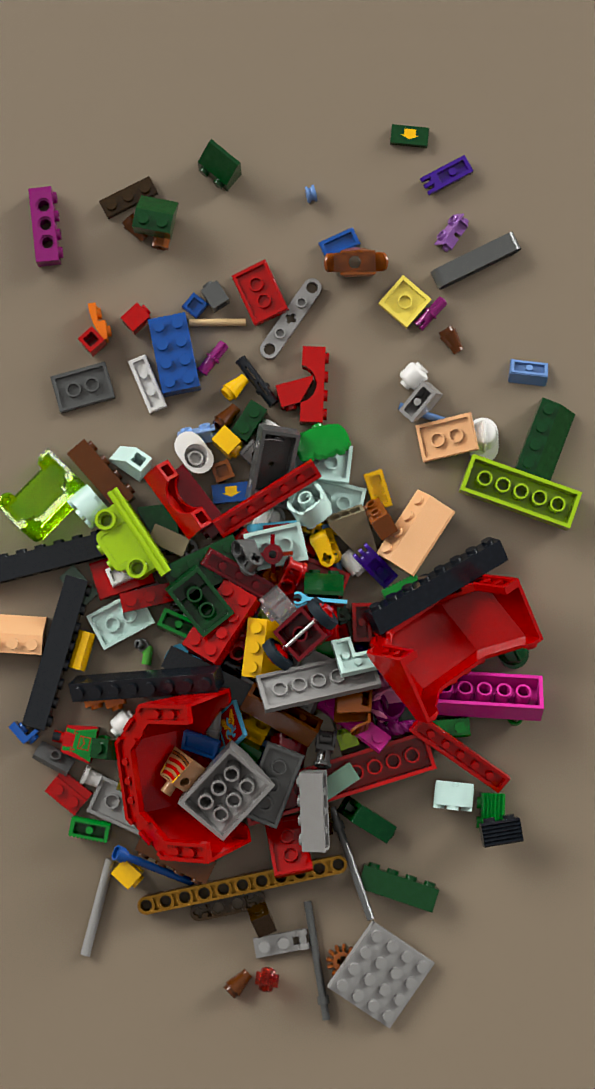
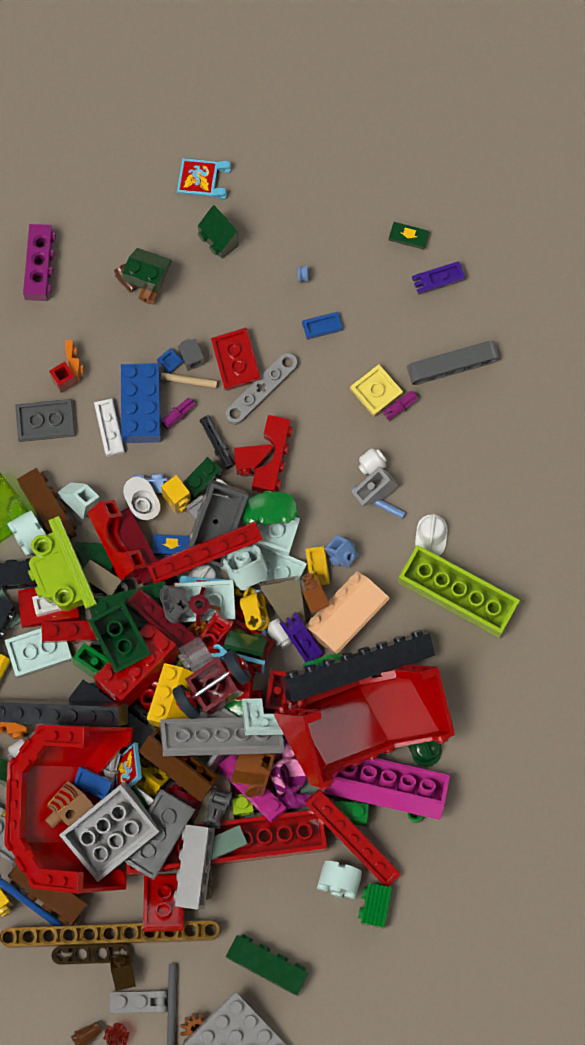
camera: 10 degrees right, 10 degrees down
(127, 197) = (123, 248): dark brown plate -> none
(136, 318) = (110, 362): red brick -> none
(146, 649) = (57, 683): arm -> none
(188, 110) = (199, 178): none -> flag
(222, 471) = (167, 522): dark orange plate -> none
(226, 417) = (181, 470): reddish brown cone -> none
(234, 387) = (193, 444): yellow cone -> none
(338, 826) = (218, 894): dark grey bar -> none
(347, 615) = (264, 684): dark green plate -> none
(367, 819) = (248, 890): dark green slope -> none
(369, 260) = (348, 346): dark orange piece -> none
(399, 472) = (341, 552): none -> medium blue brick
(447, 437) = (395, 526): light nougat tile -> none
(451, 339) = (416, 434): reddish brown cone -> none
(456, 225) = (439, 326): medium lavender hinge -> none
(500, 831) = (381, 922): black brick -> none
(528, 372) = (487, 478): medium blue slope -> none
(545, 439) = (493, 544): dark green slope -> none

